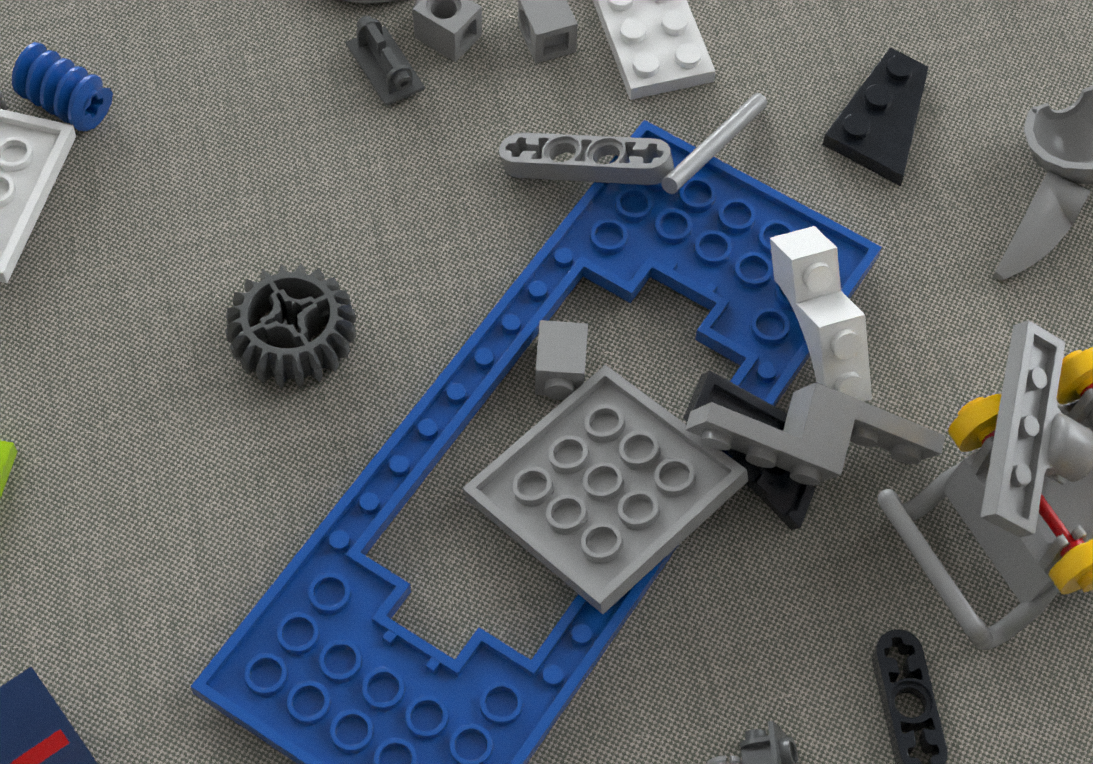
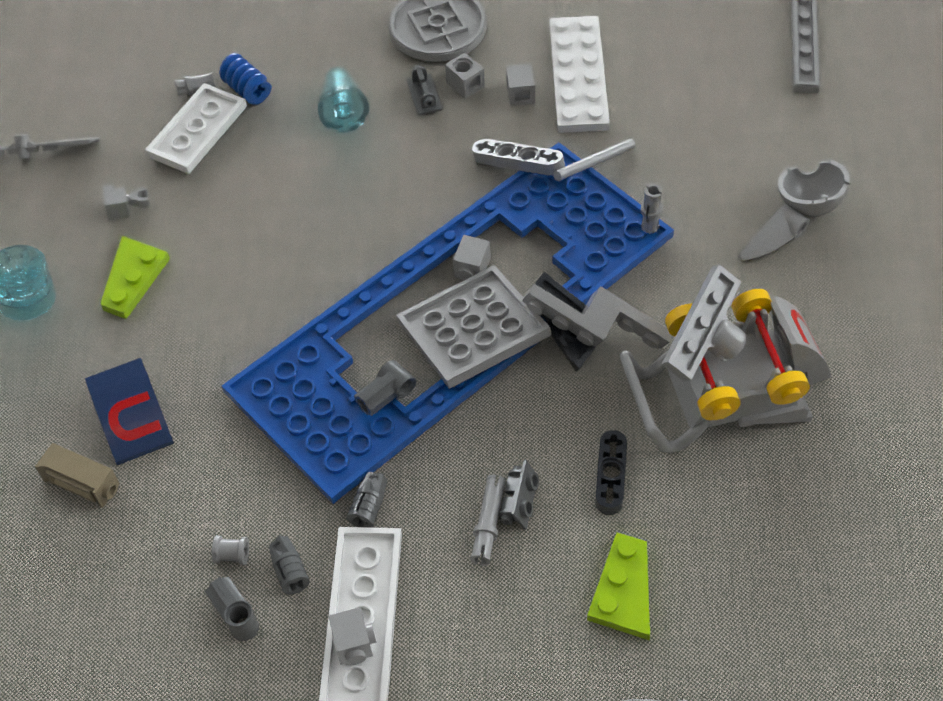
camera: 20 degrees right, 5 degrees down
(250, 103) = (342, 102): none -> clear light blue cone
(278, 348) = (346, 215): dark grey gear -> none
(499, 624) = (390, 383): none -> dark grey piece
(831, 323) = (625, 256): white arch -> none
(853, 207) = (651, 208): none -> light grey pin
(881, 117) = (700, 162): black wing -> none

